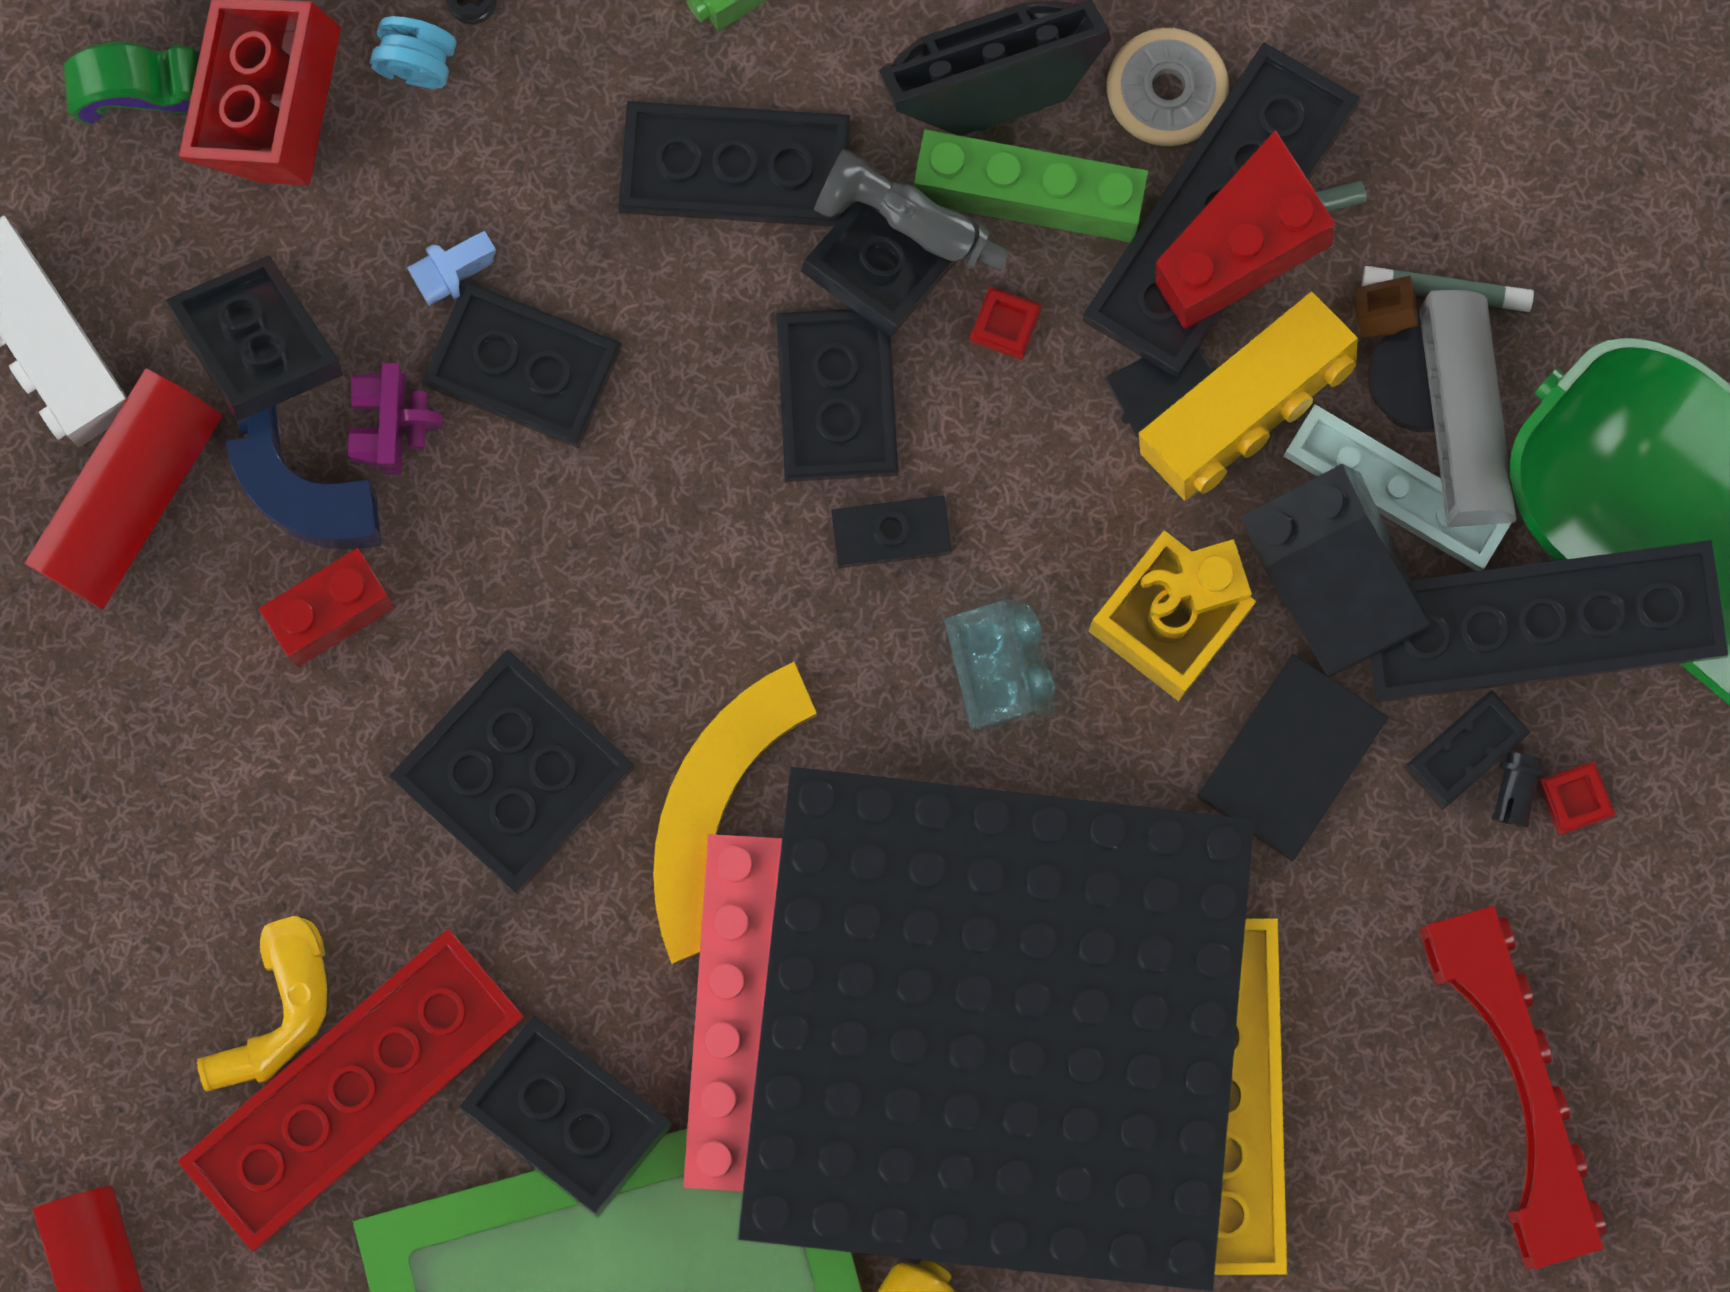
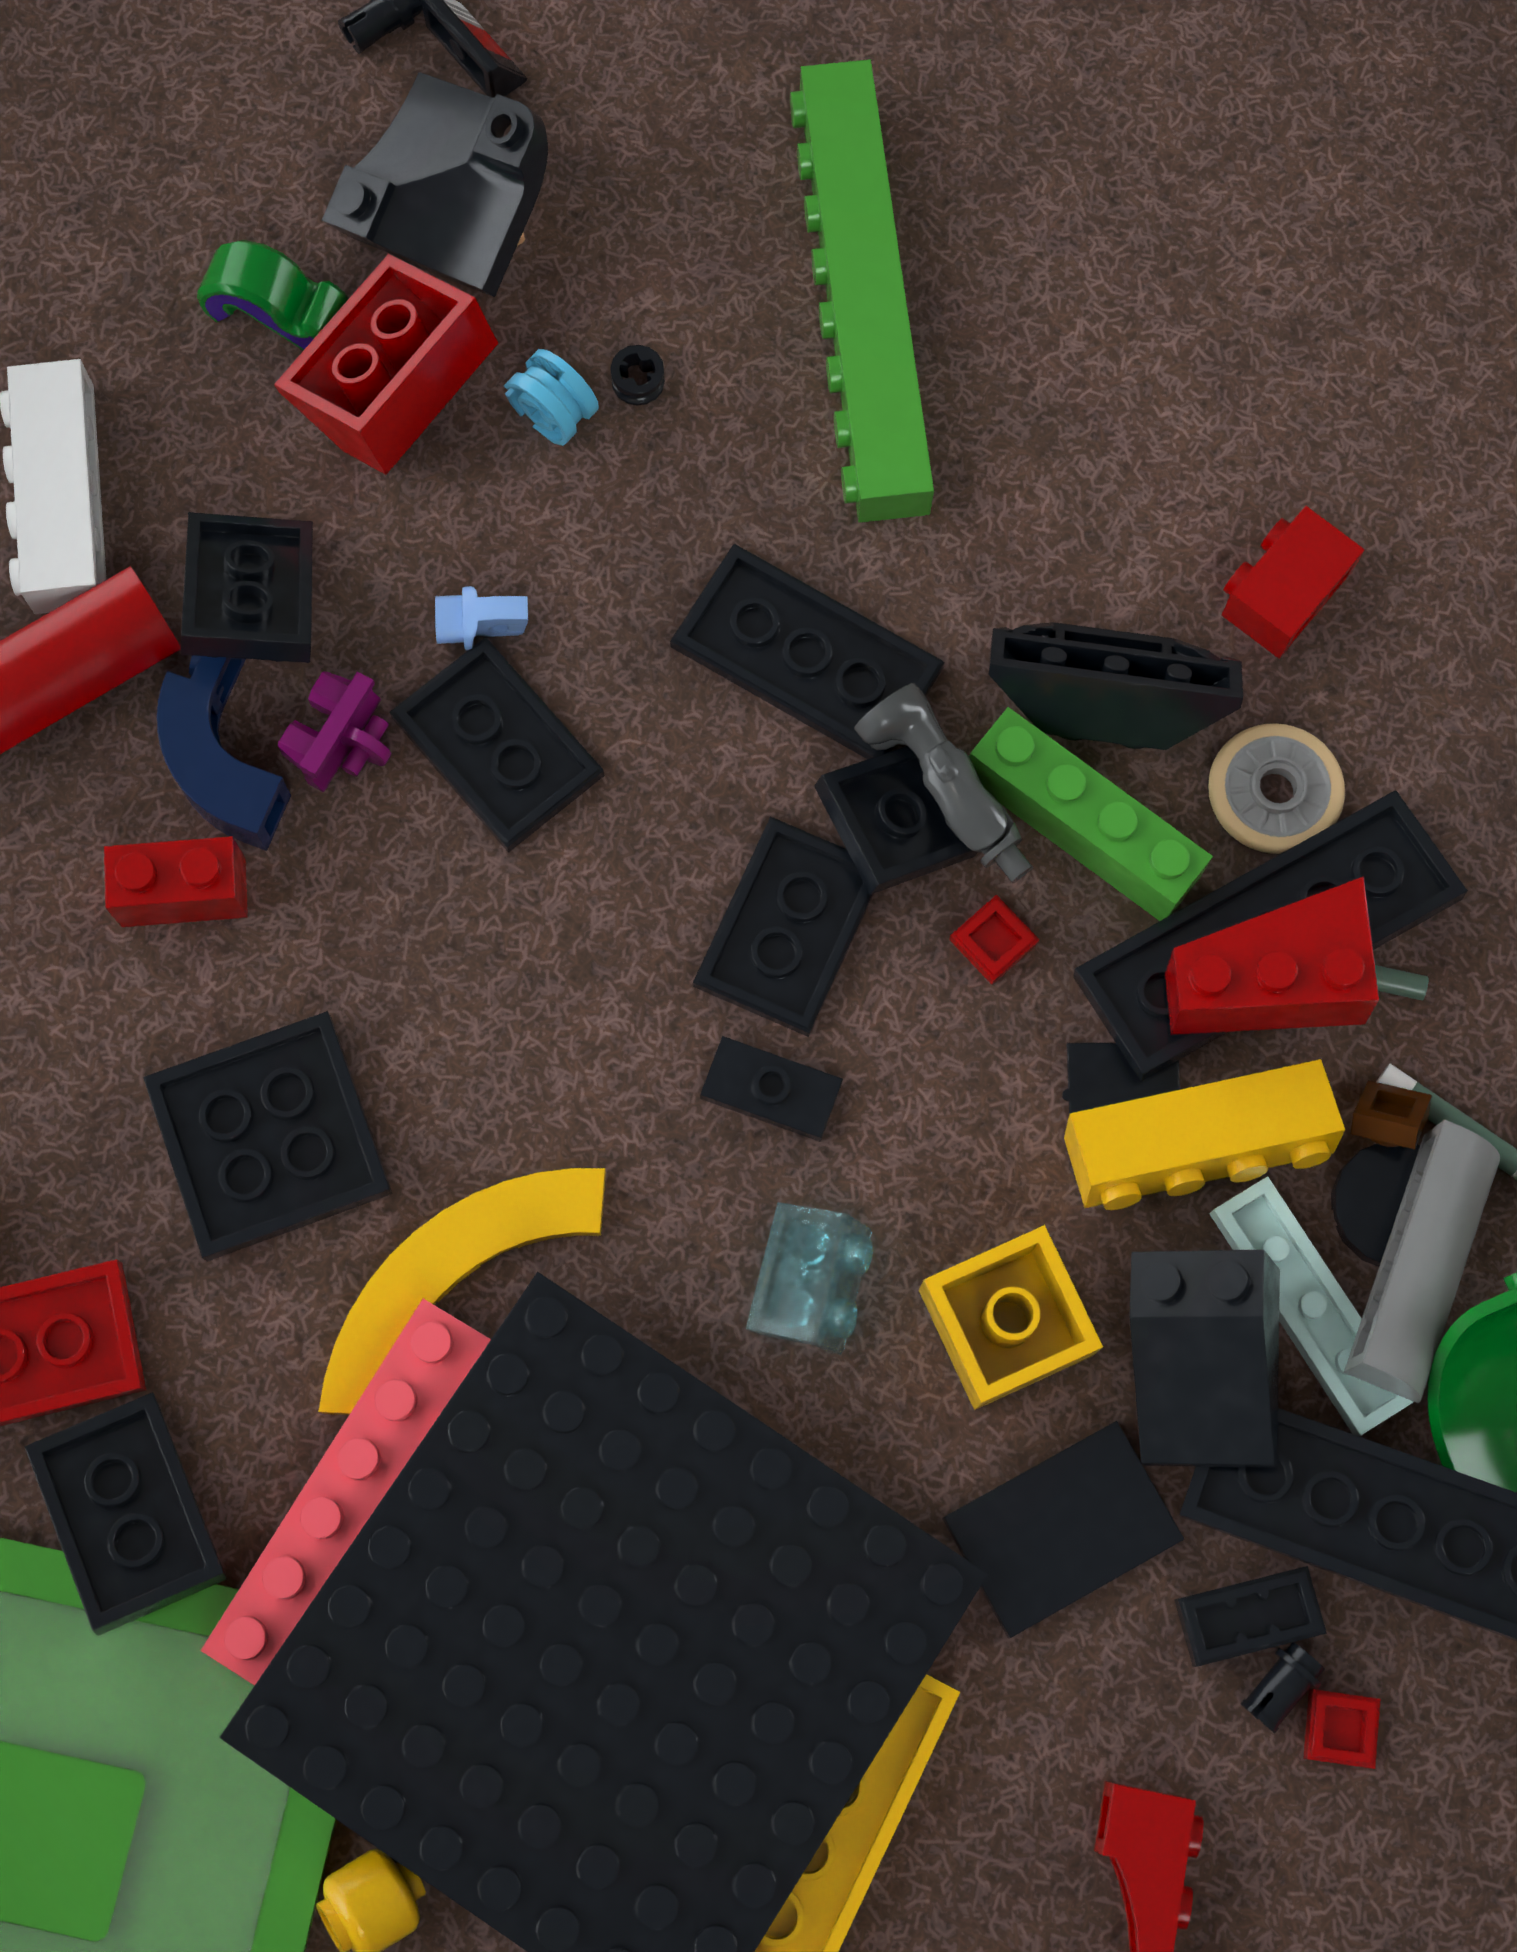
camera: 25 degrees right, 5 degrees down
(1206, 578) = (1064, 1296): yellow plate -> none

